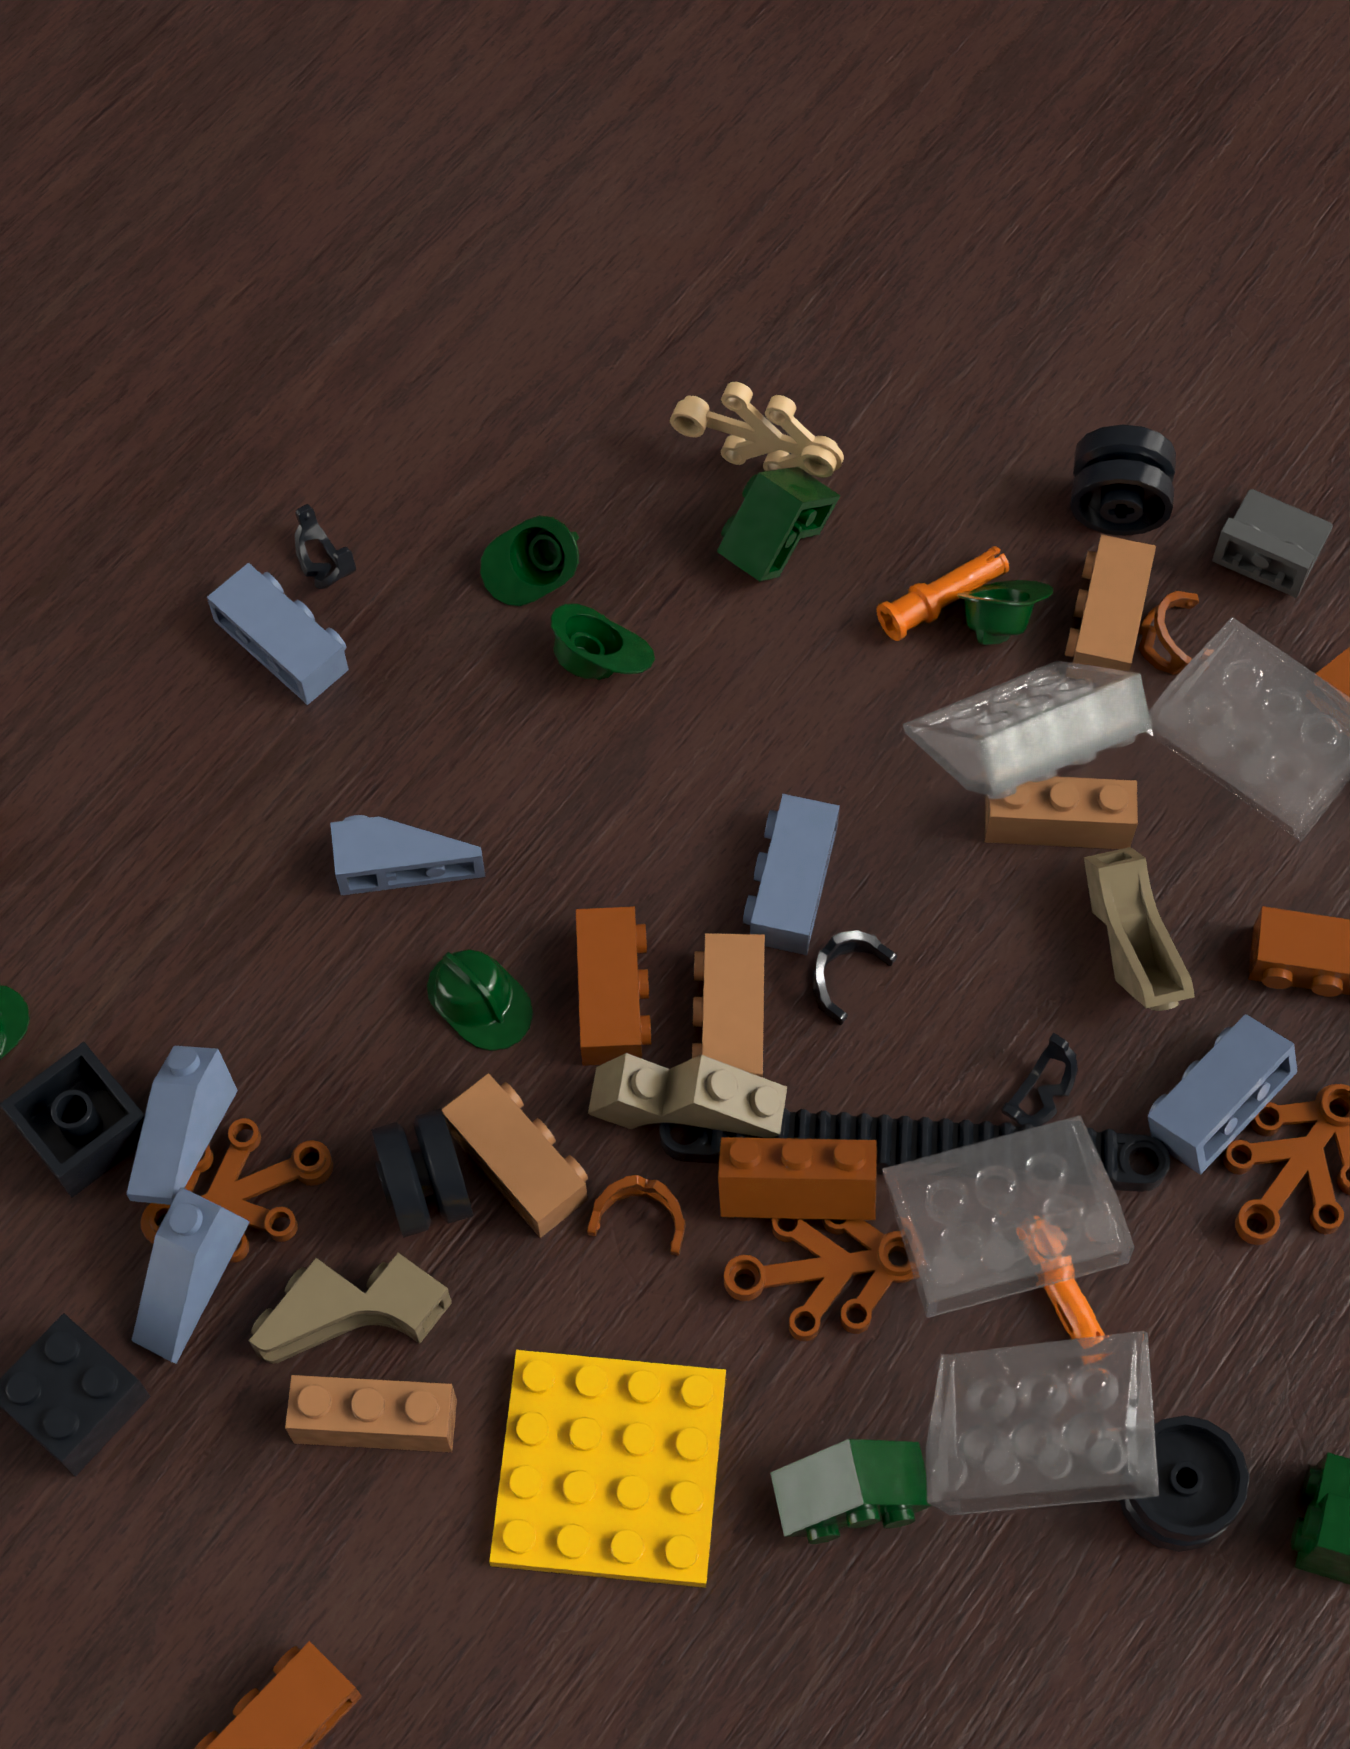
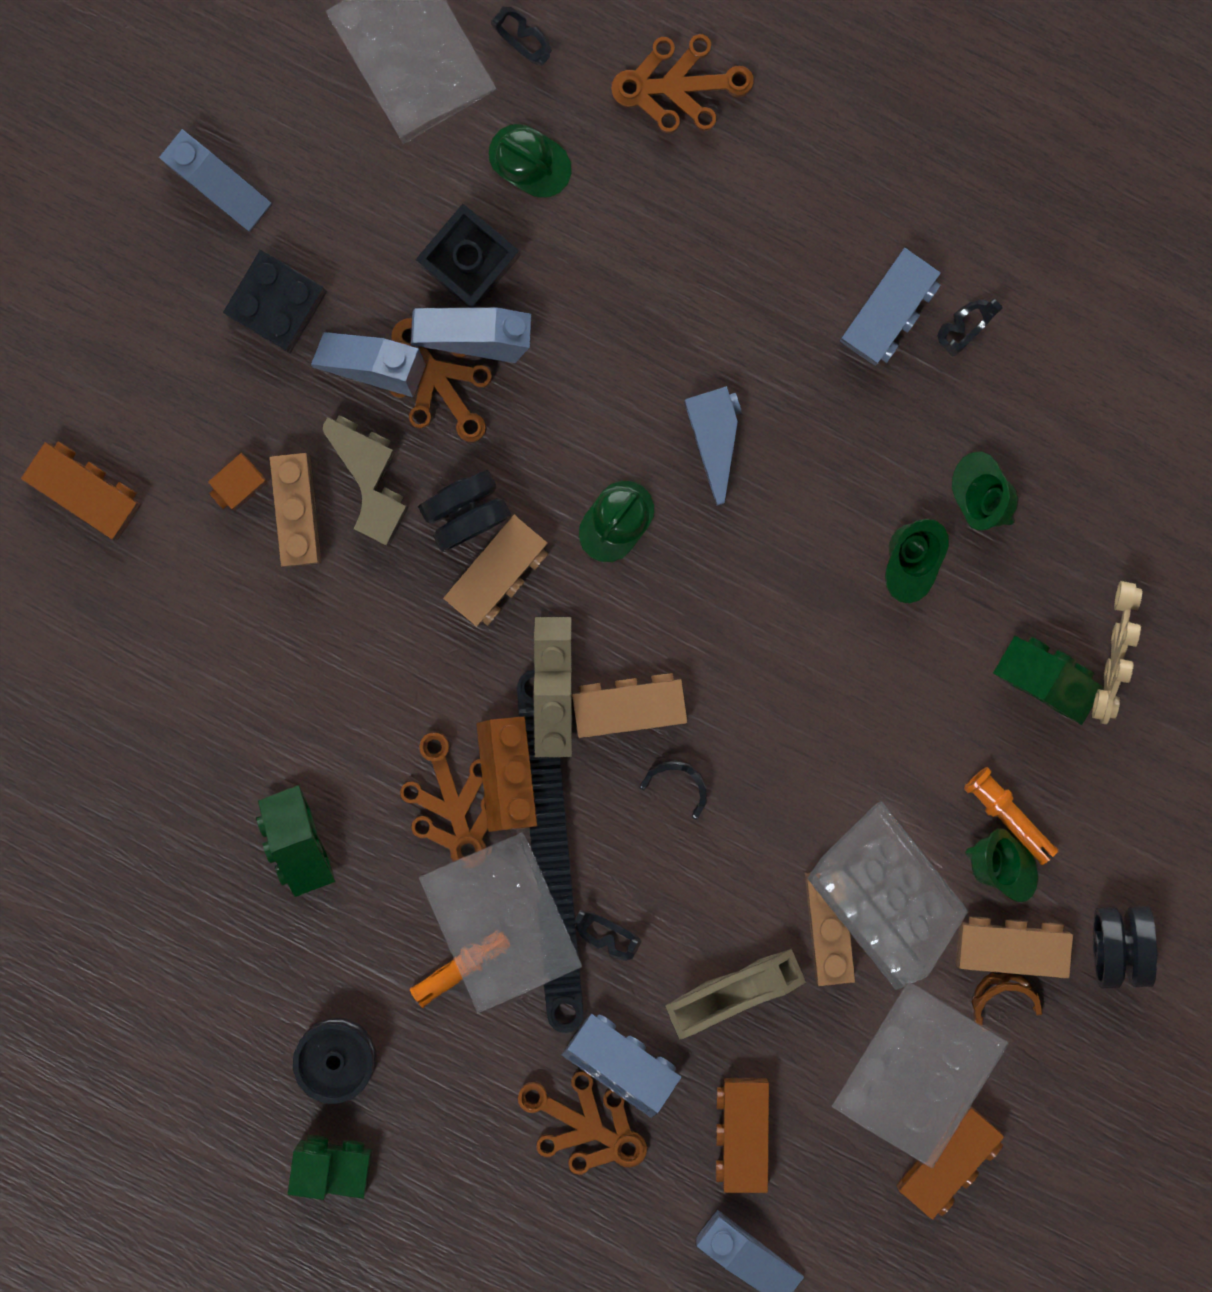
camera: 80 degrees right, 25 degrees up
(314, 1493) = (236, 483): none -> dark orange brick
(609, 1468) = (290, 675): yellow plate -> none
(611, 984) = (636, 617): dark orange brick -> none
(639, 1186) = (489, 667): dark orange helmet -> none
(792, 872) = (748, 734): sand blue brick -> none
(1043, 1426) = (355, 963): clear slope -> none
(1272, 542) = (1099, 1069): dark grey bracket -> none

